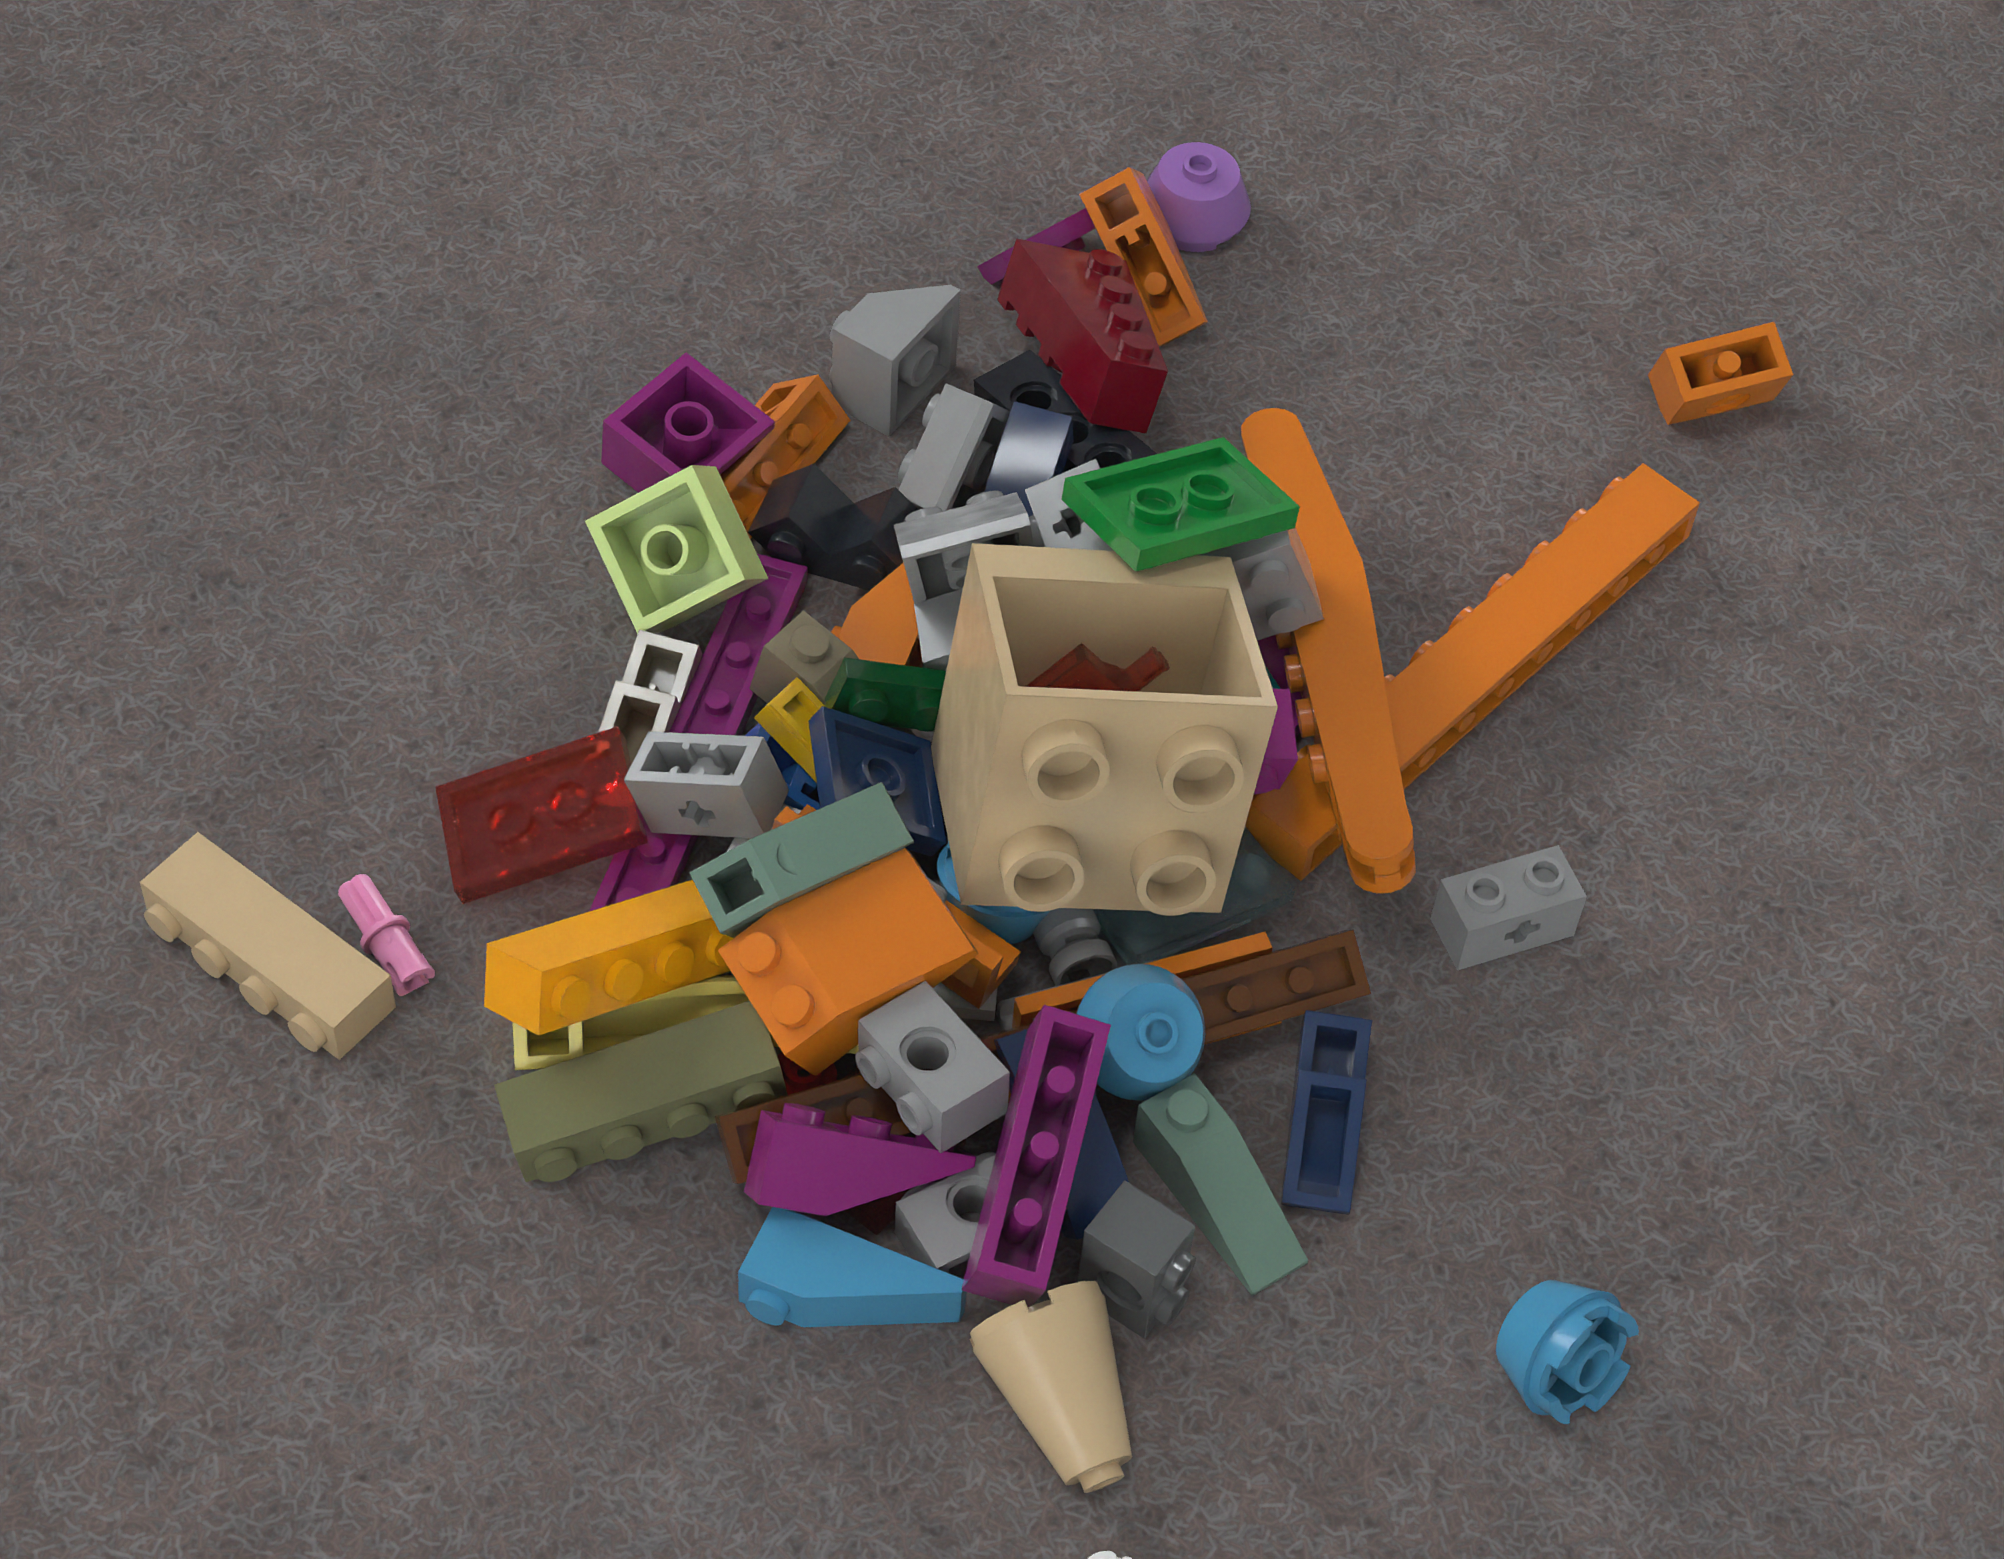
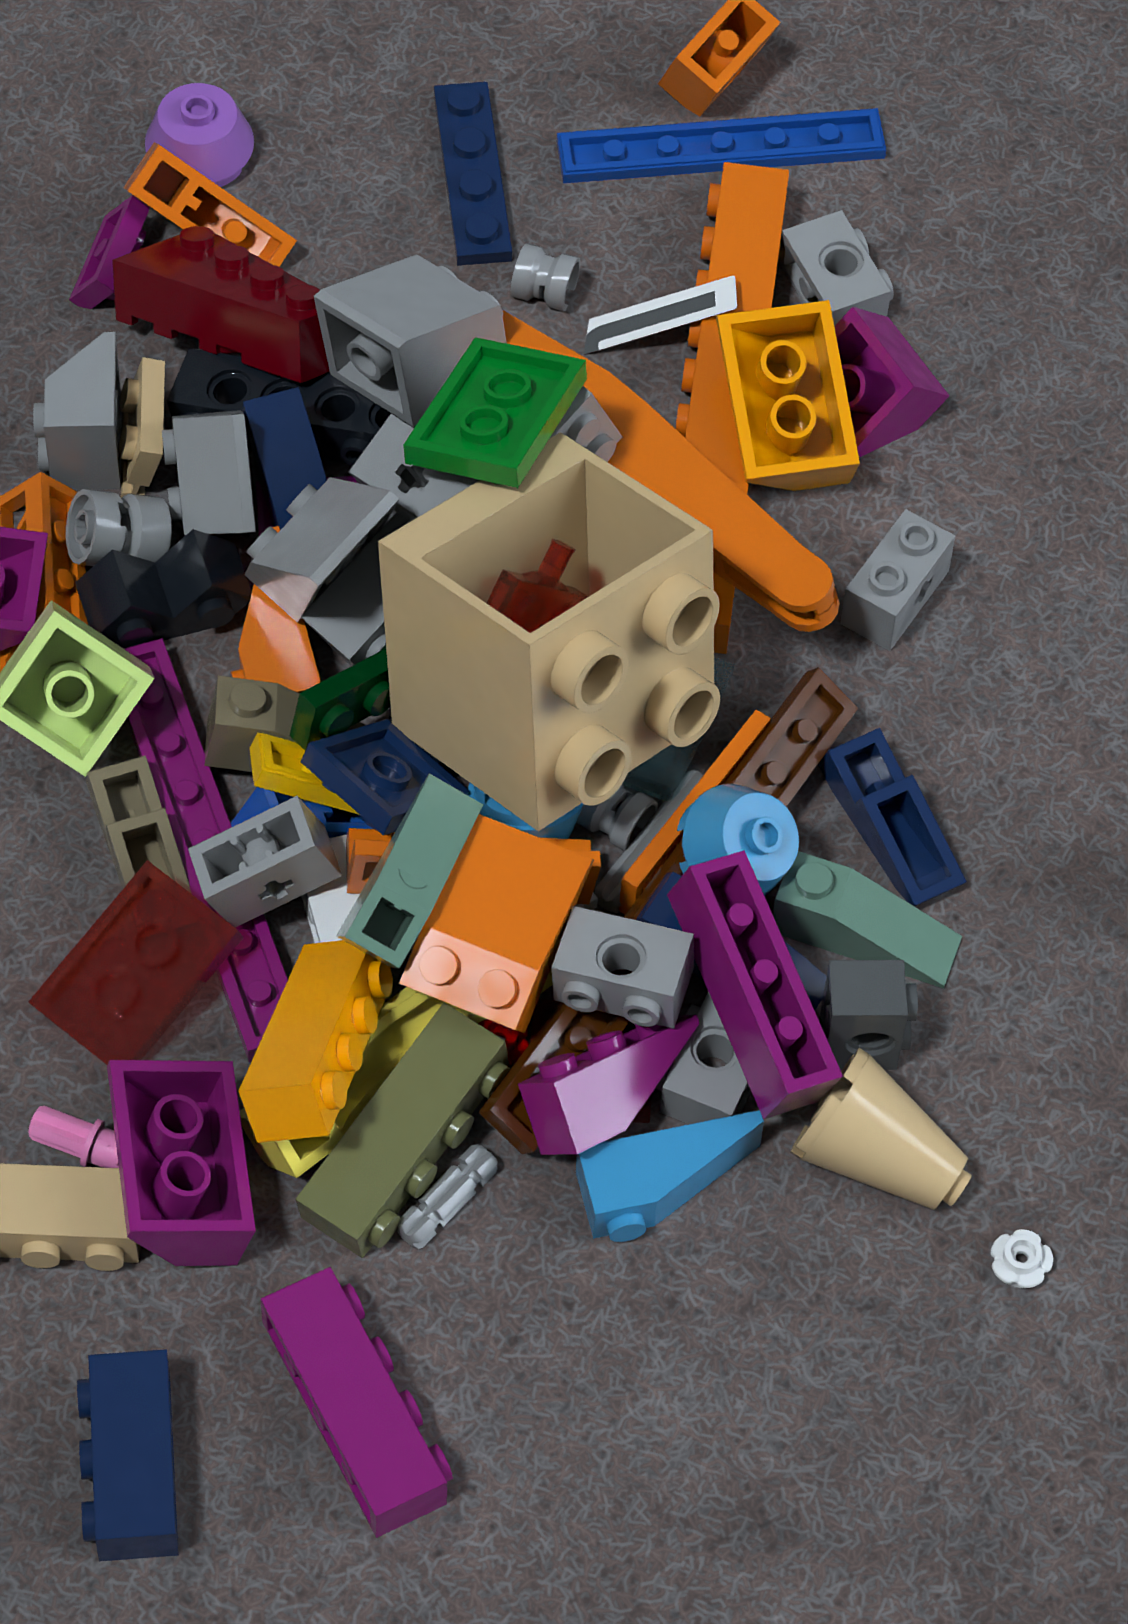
camera: 35 degrees left, 5 degrees up
(176, 1209) = (129, 1456): none -> dark blue brick
(398, 1295) = (355, 1401): none -> magenta brick
(415, 987) = (182, 1159): none -> magenta slope
(641, 1177) = (447, 1196): none -> light grey axle
(844, 455) = (126, 524): none -> light grey wheel
(951, 365) = (142, 426): none -> tan plate
(1197, 396) = (403, 331): none -> light grey slope
(1400, 469) = (544, 276): none -> light grey wheel
(1414, 358) = (472, 174): none -> dark blue plate
(1479, 558) = (661, 314): none -> sticker
(1524, 685) = (789, 396): none -> light orange slope
(1622, 726) = (884, 380): none -> magenta slope
(1675, 619) = (833, 264): none -> light grey brick
(1692, 467) = (708, 144): none -> blue tile

